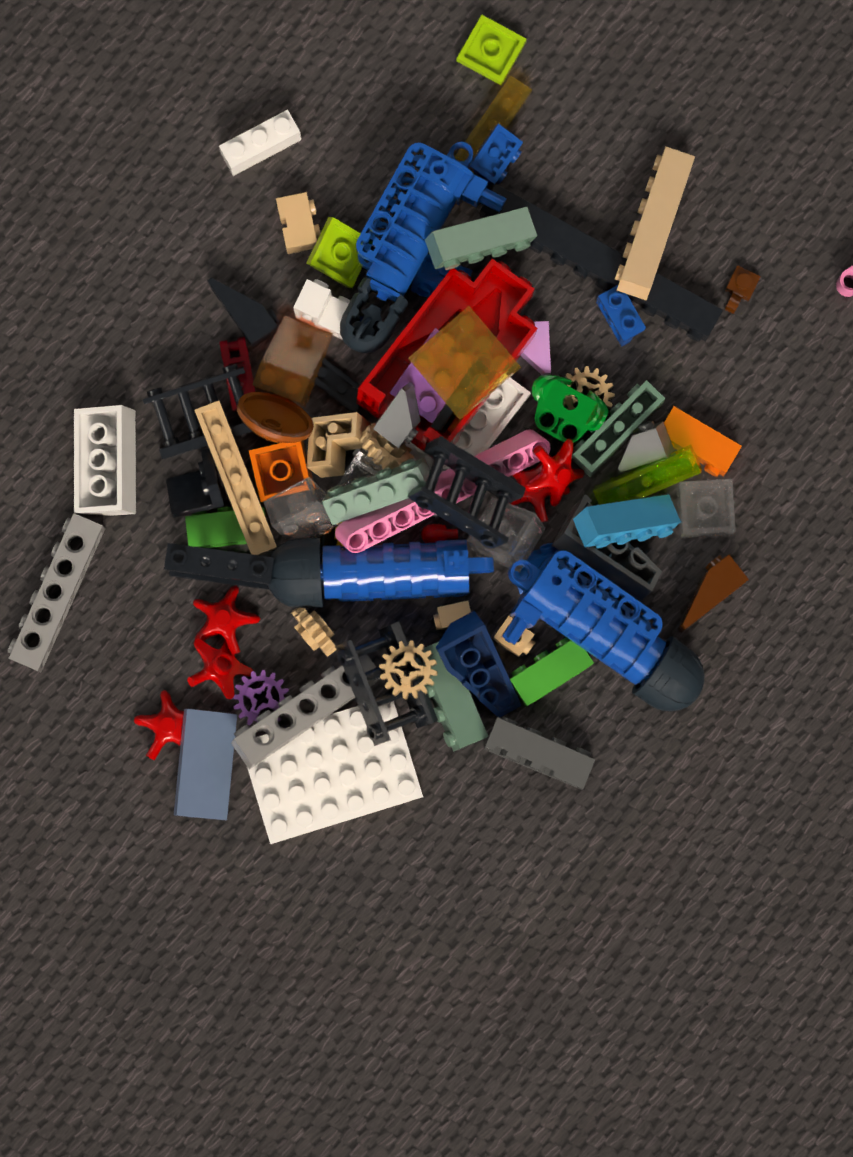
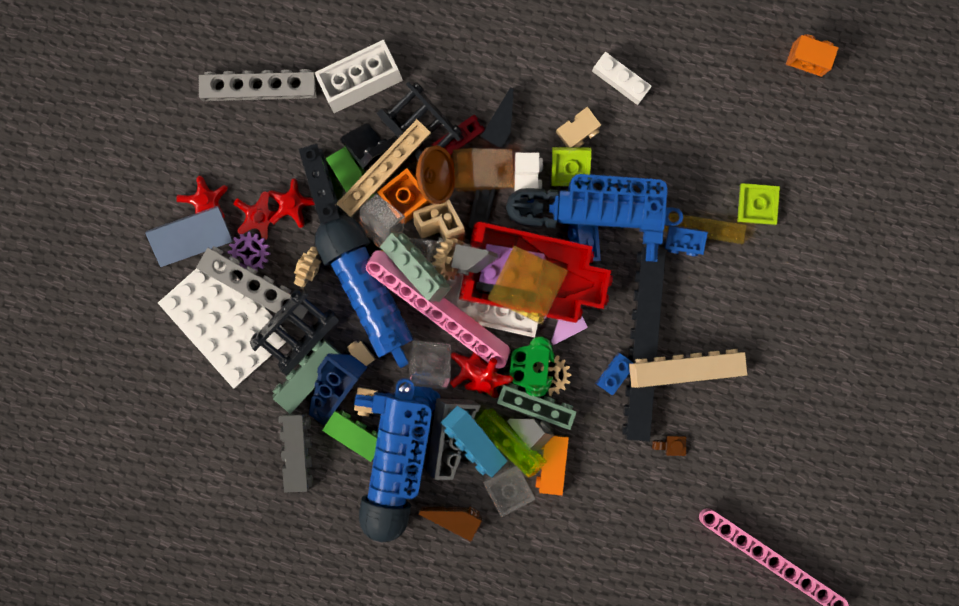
camera: 70 degrees right, 5 degrees up
(407, 681) = (298, 344): tan gear -> none
(437, 532) = (411, 318): red cylinder -> none
(481, 238) = (620, 256): sand green brick -> none
(484, 477) = (456, 334): black fence -> none

